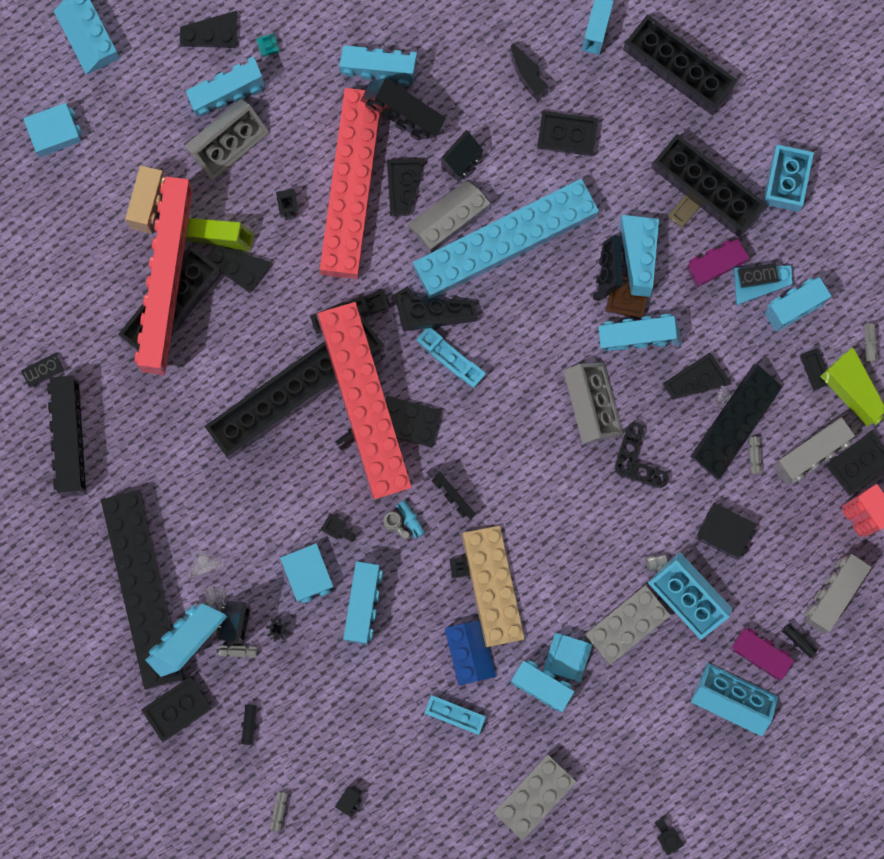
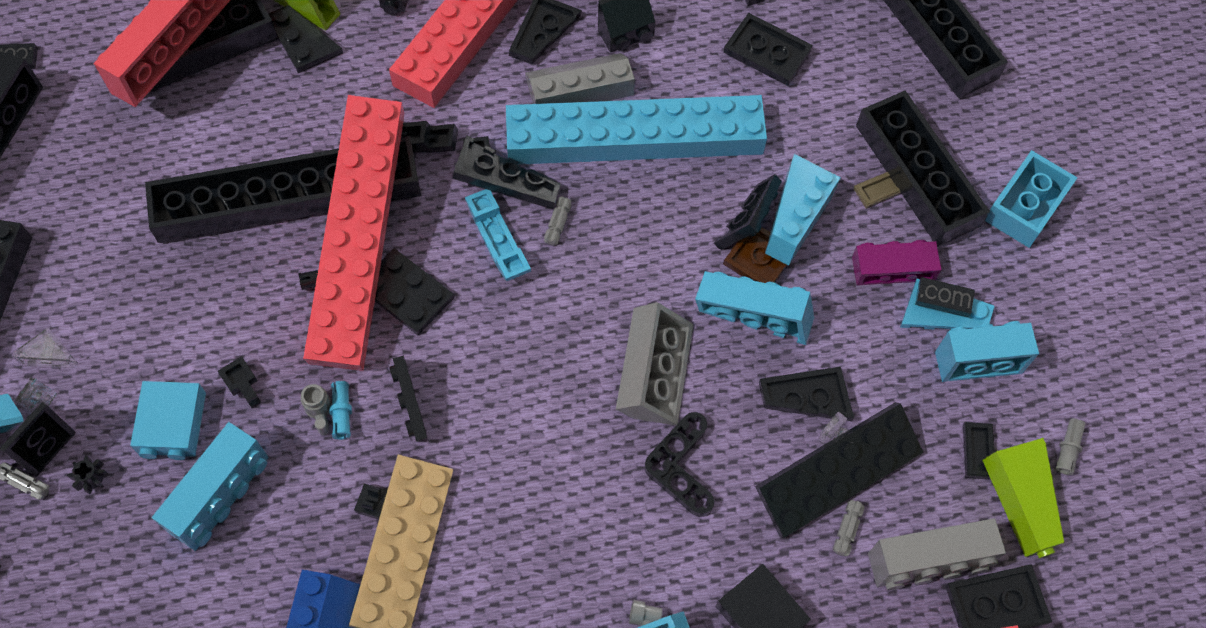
camera: 25 degrees right, 15 degrees down
(483, 328) = (557, 221): none -> light grey axle

